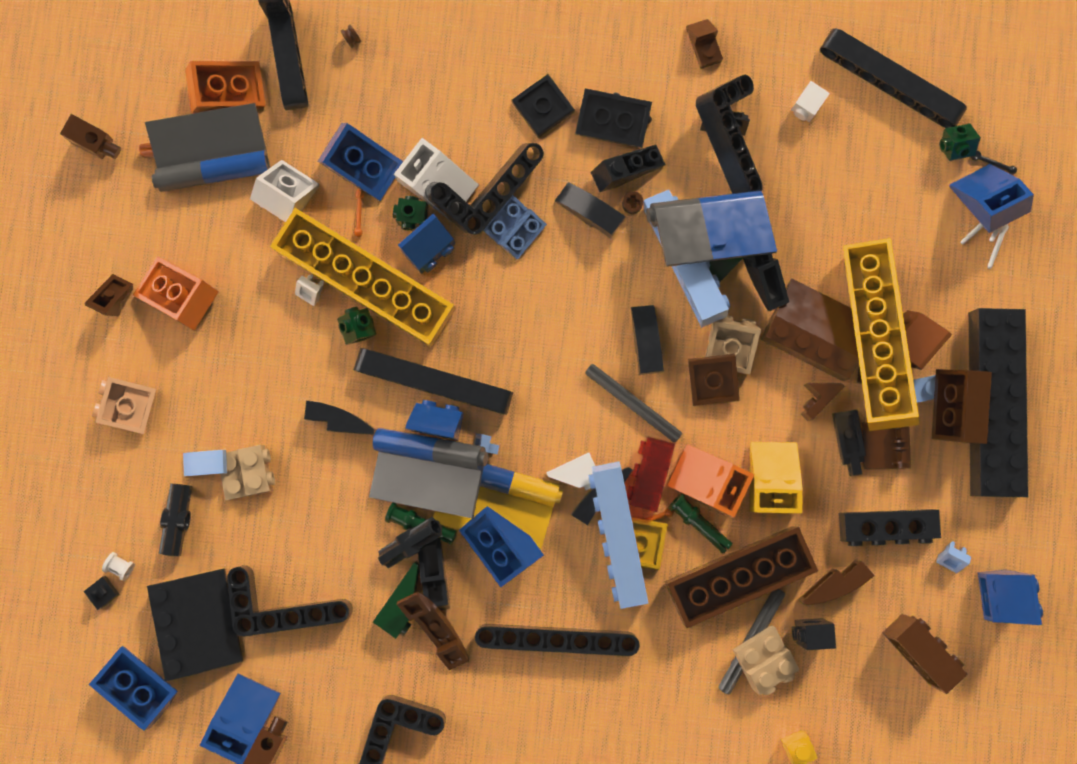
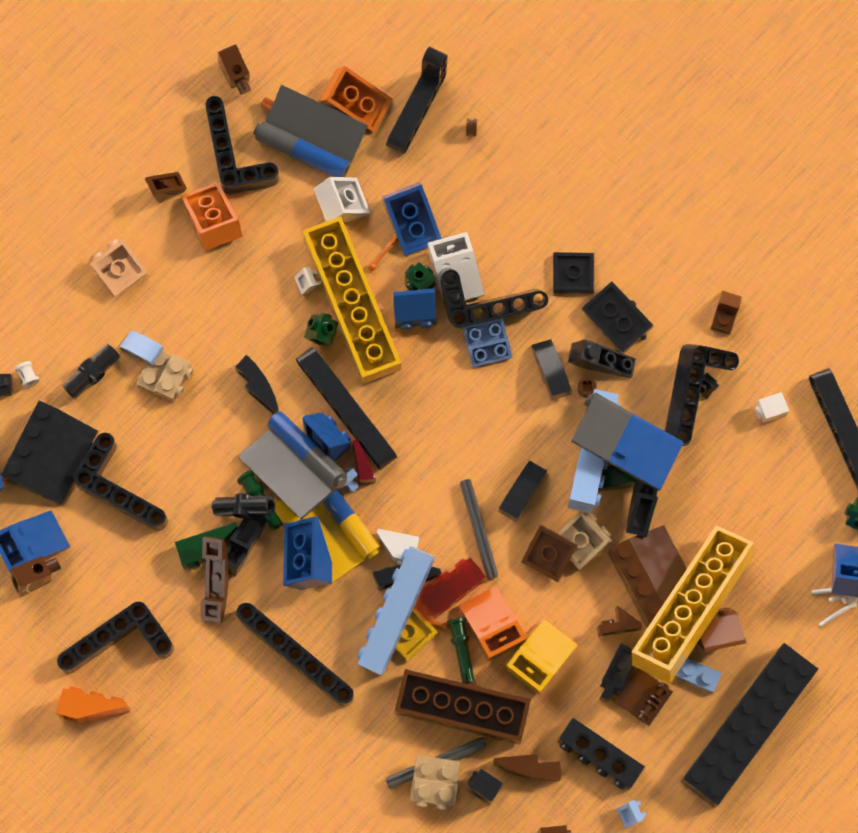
camera: 35 degrees right, 10 degrees down
(144, 224) = (226, 154): none -> black beam
(492, 426) = (363, 467): none -> dark red slope
(961, 405) = (717, 702): reddish brown brick -> none

